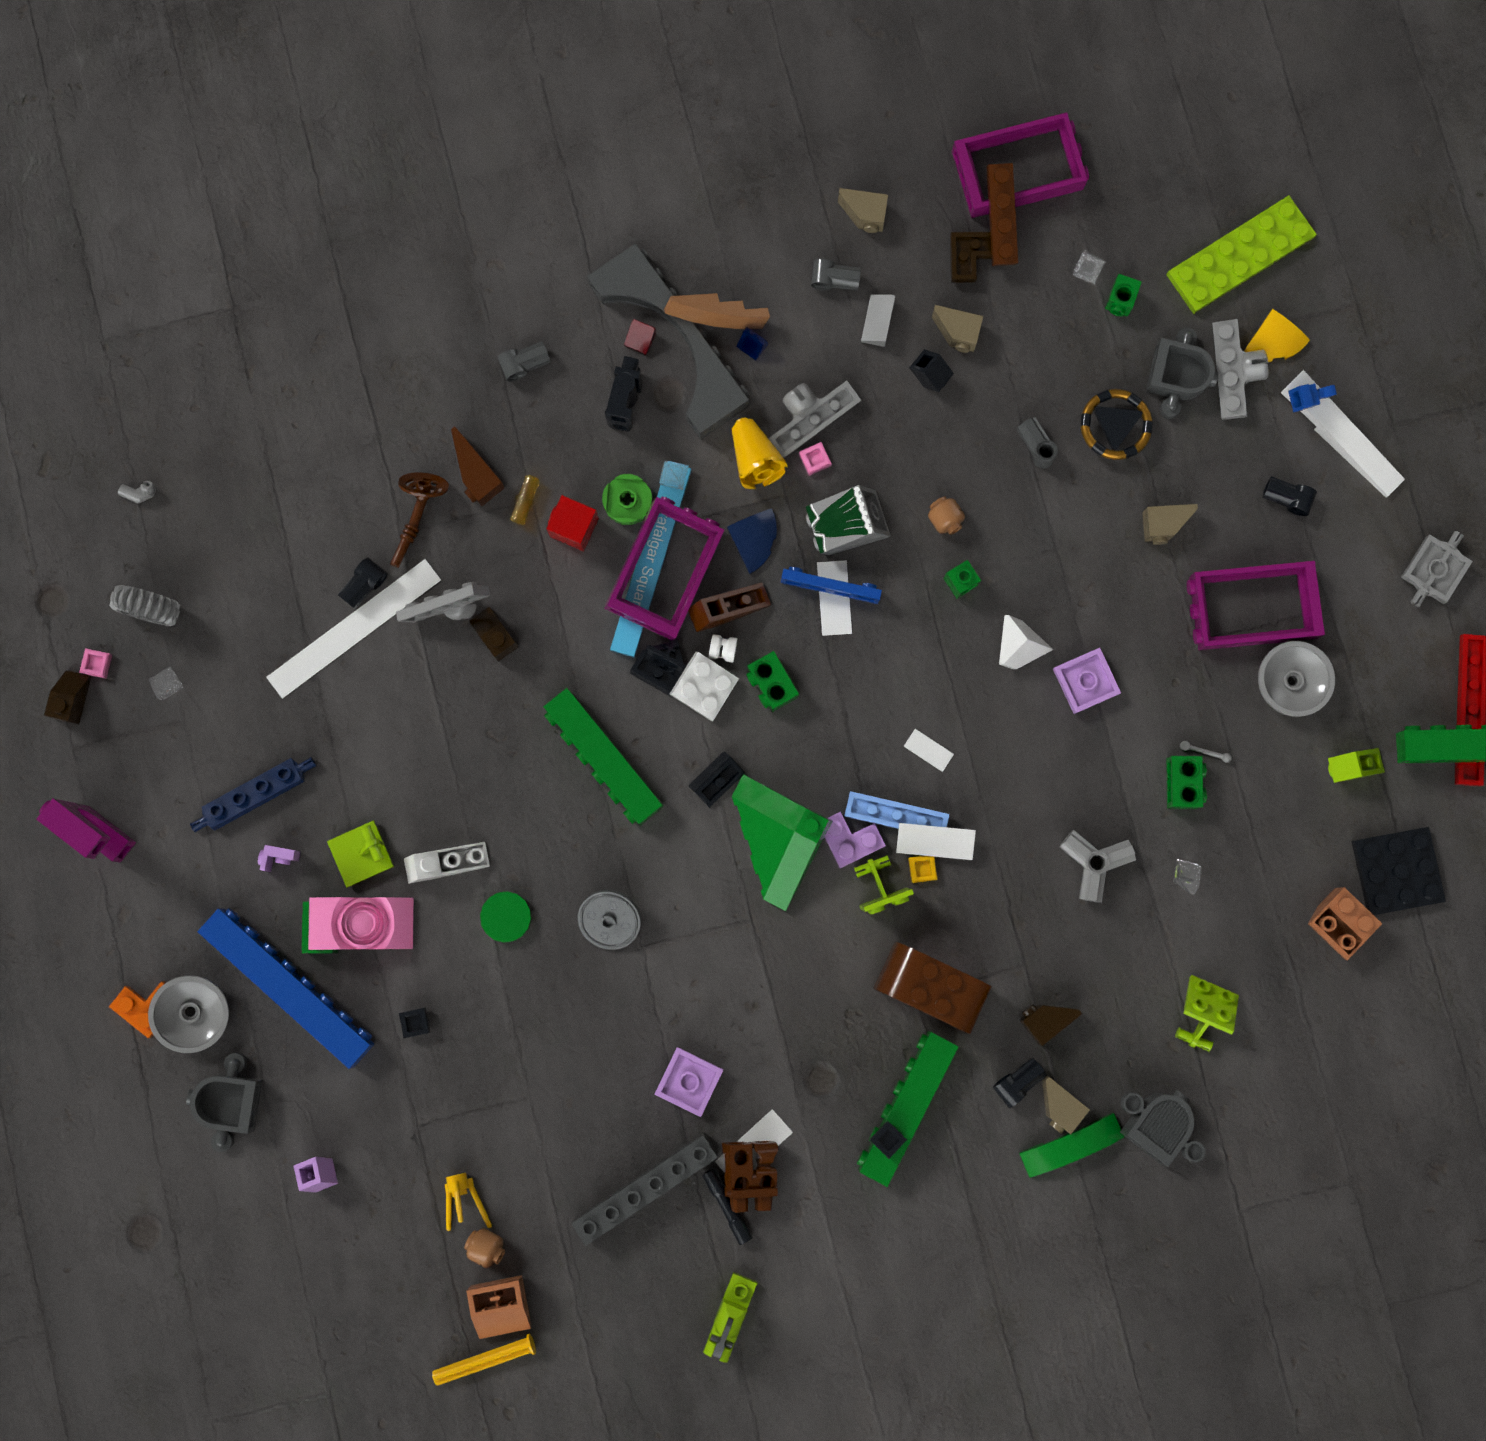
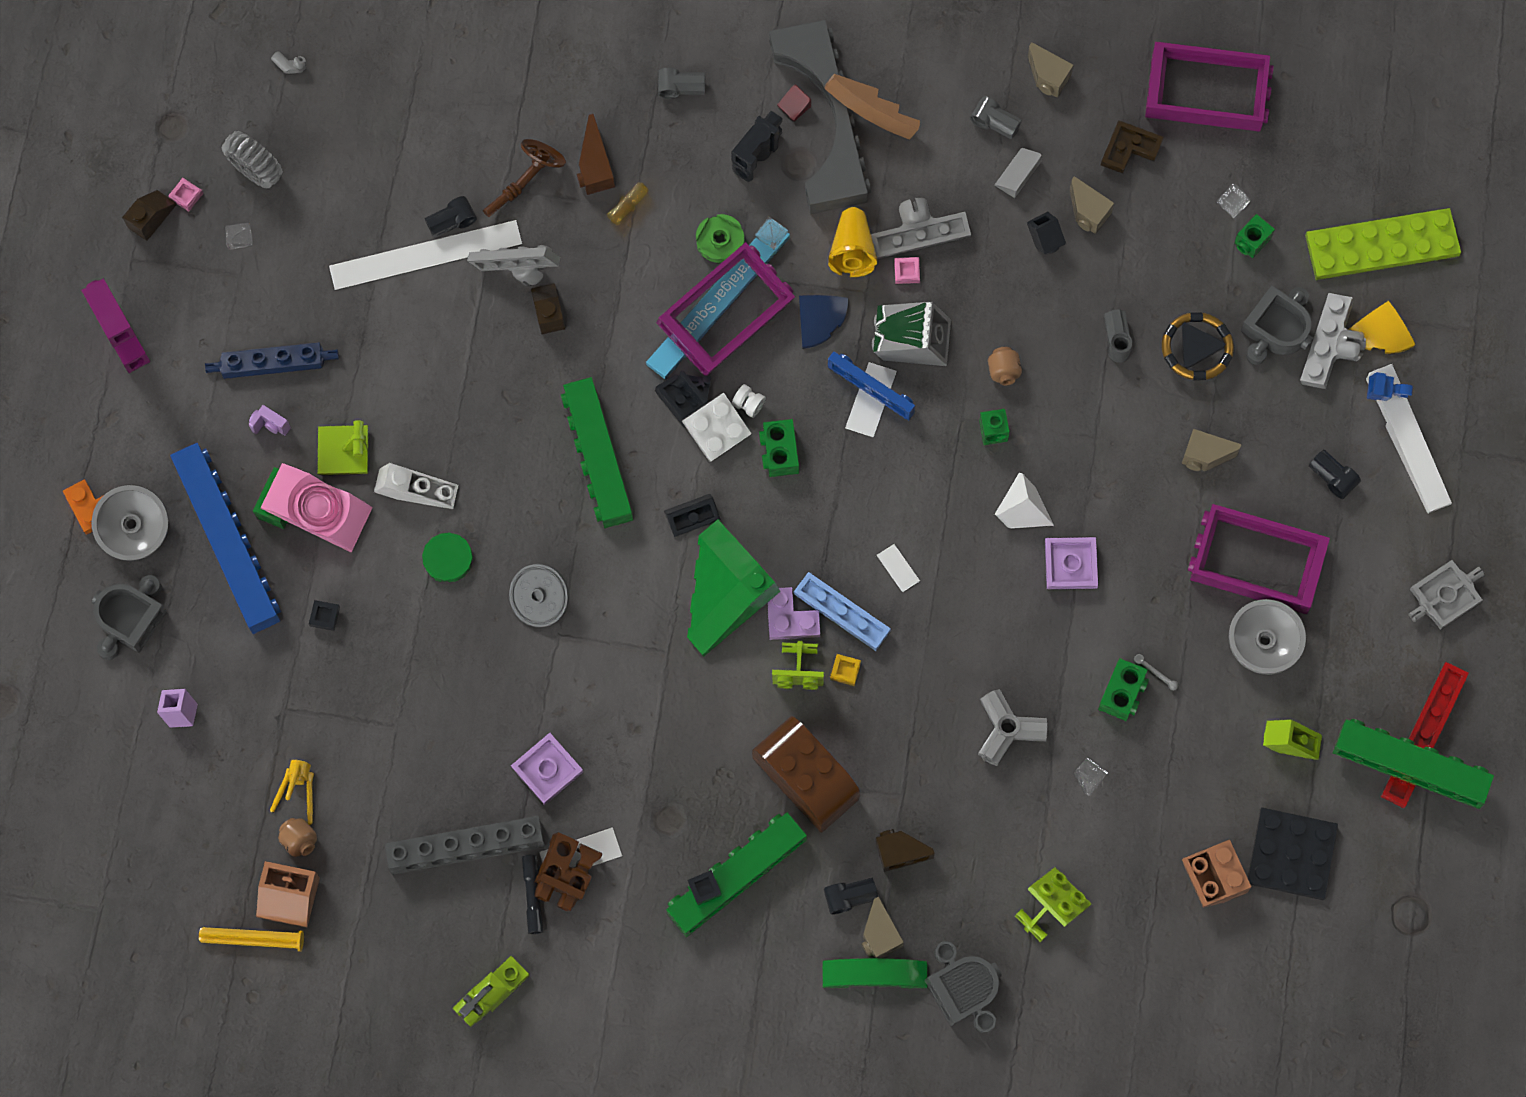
camera: 25 degrees right, 10 degrees down
(572, 523) = (661, 238): red head -> none
(728, 606) = (769, 366): reddish brown slope -> none
(752, 343) = (893, 148): clear blue slope -> none
(935, 841) = (867, 648): white sticker -> none
(1002, 214) = (1170, 121): reddish brown plate -> none

